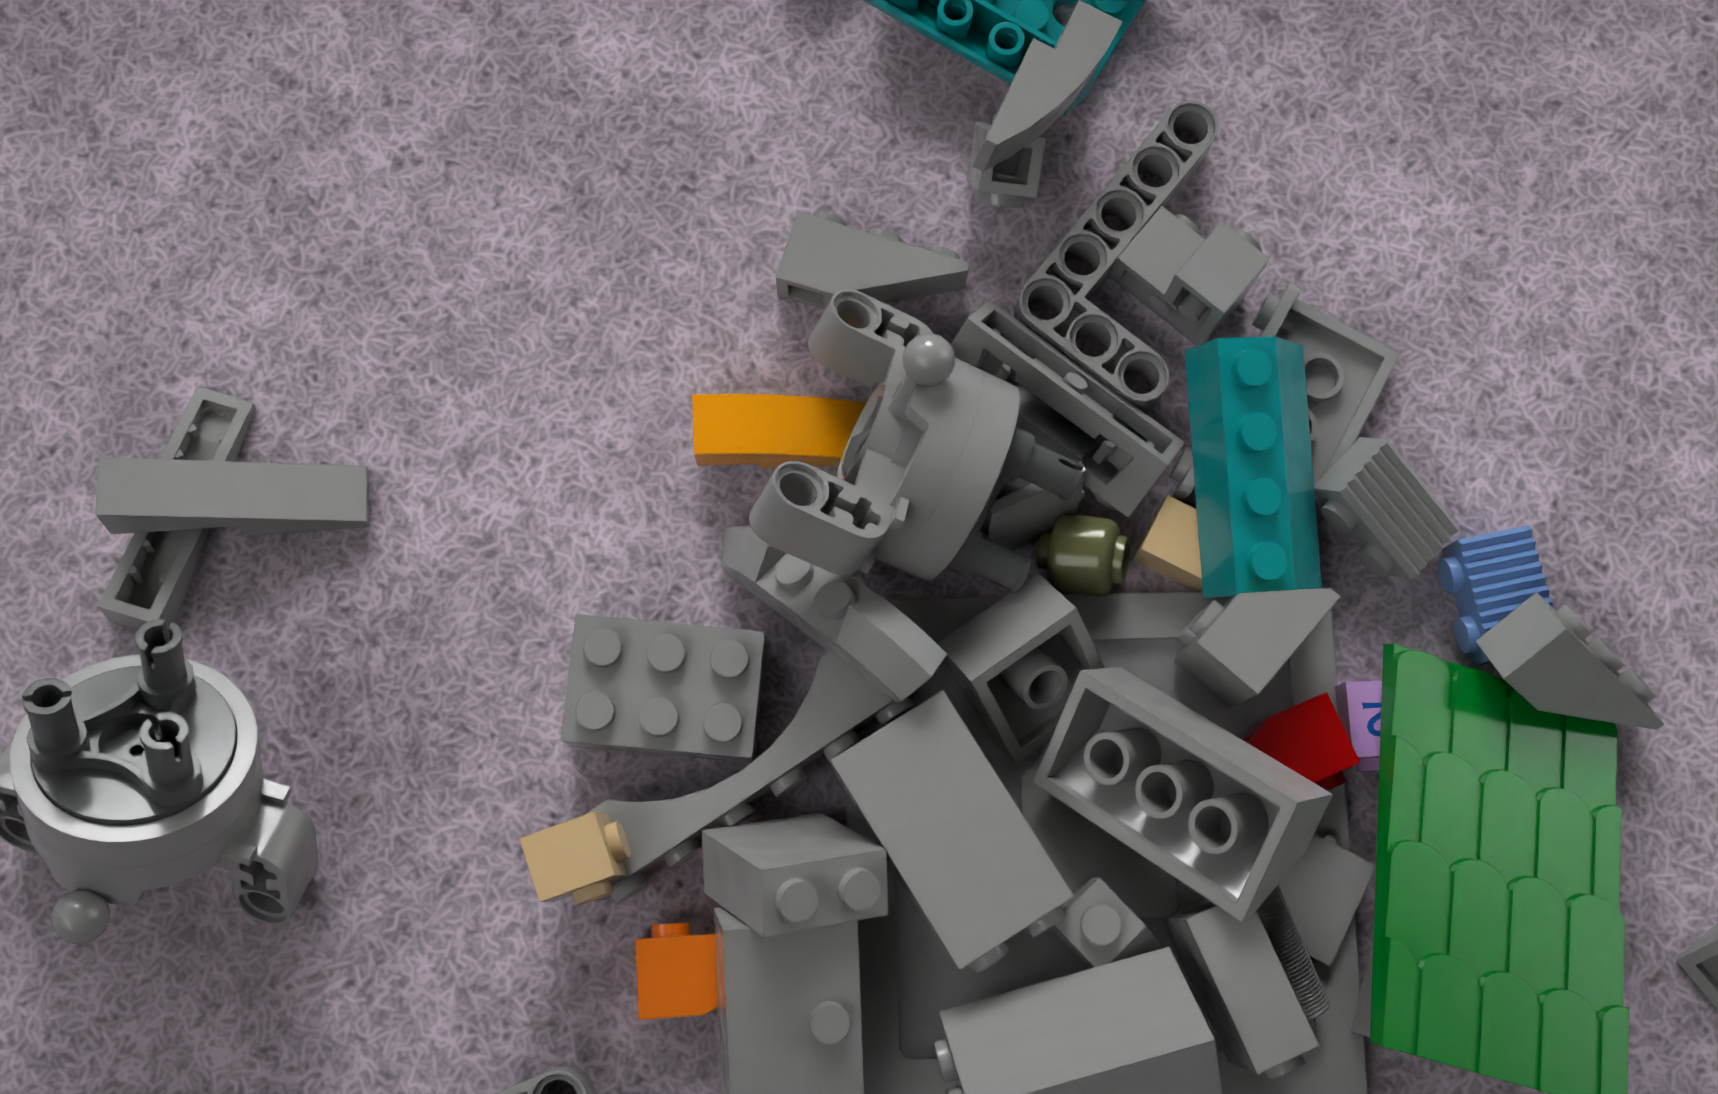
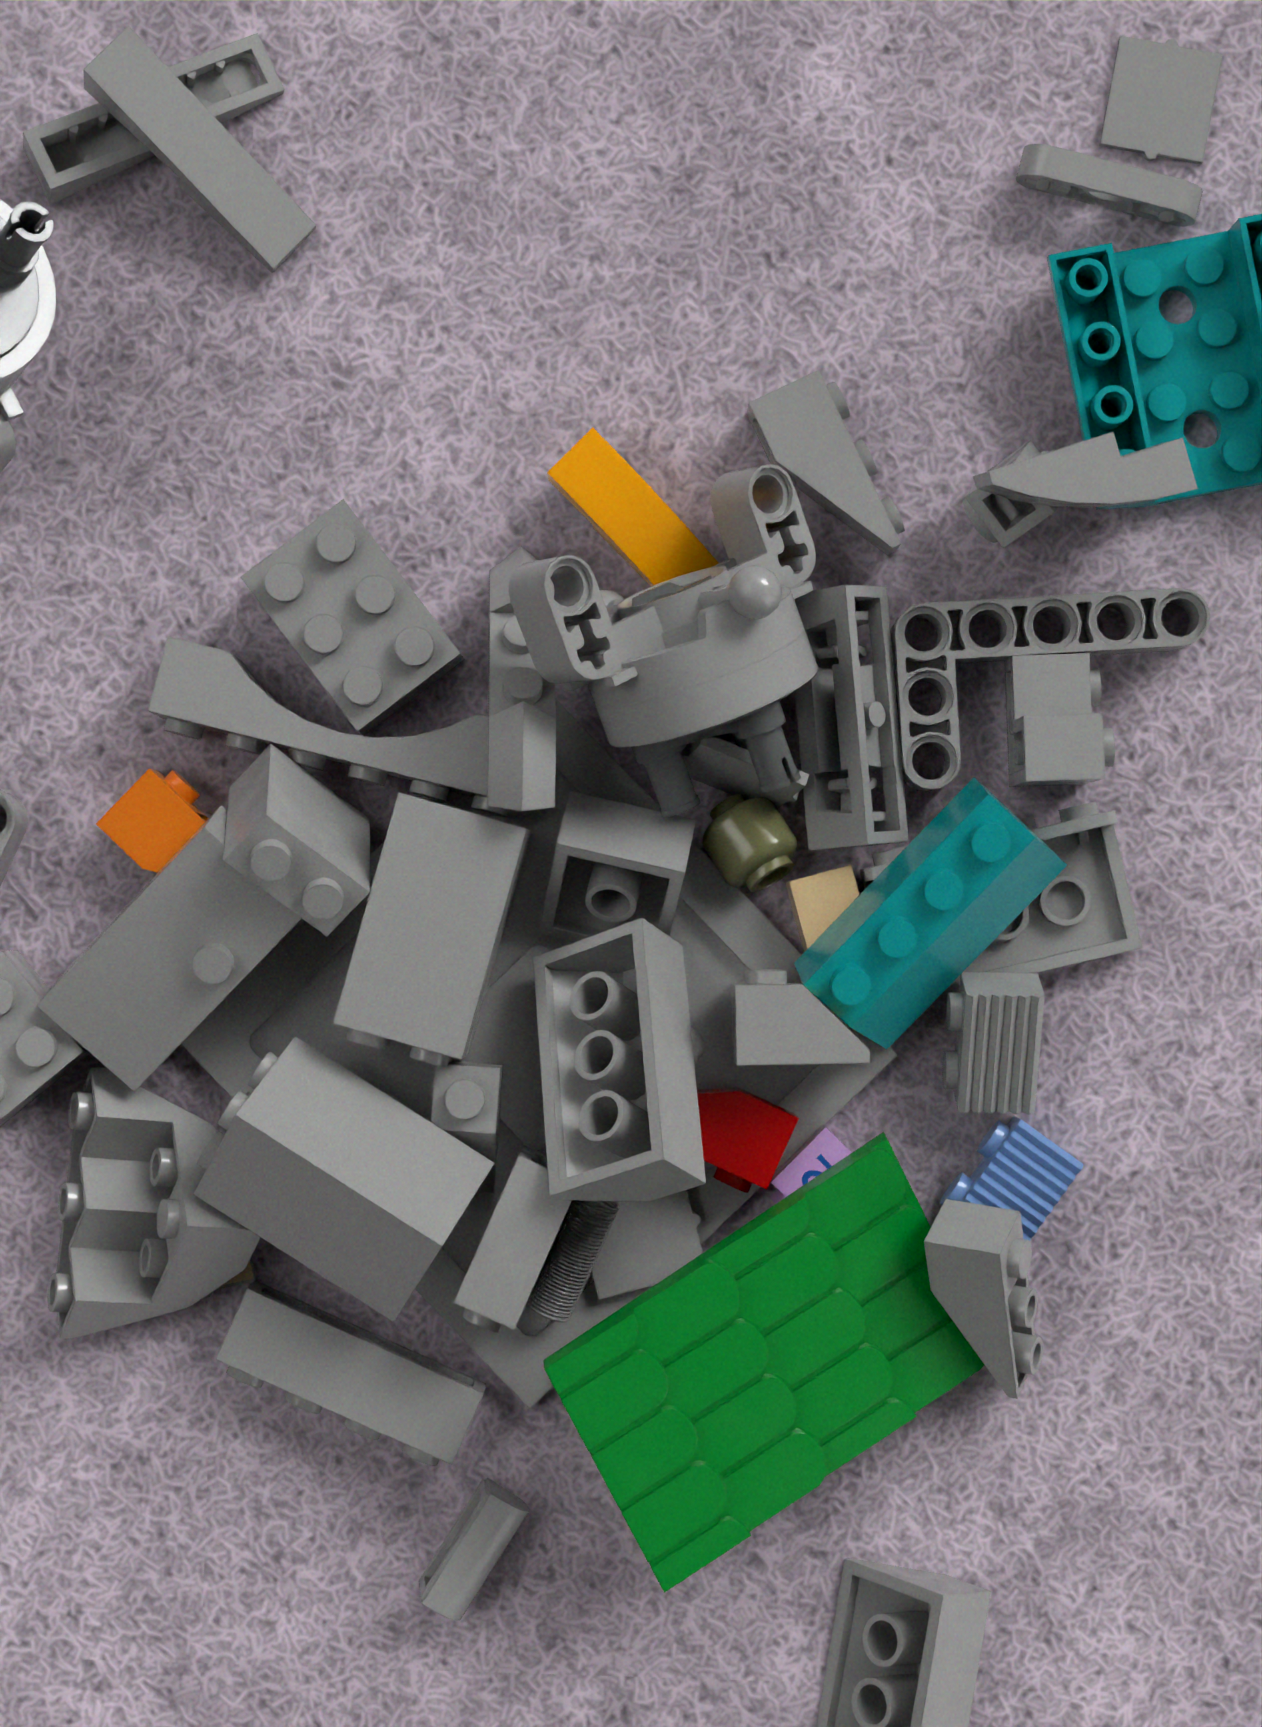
camera: 50 degrees right, 10 degrees up
(577, 858) = (164, 672): tan brick -> none

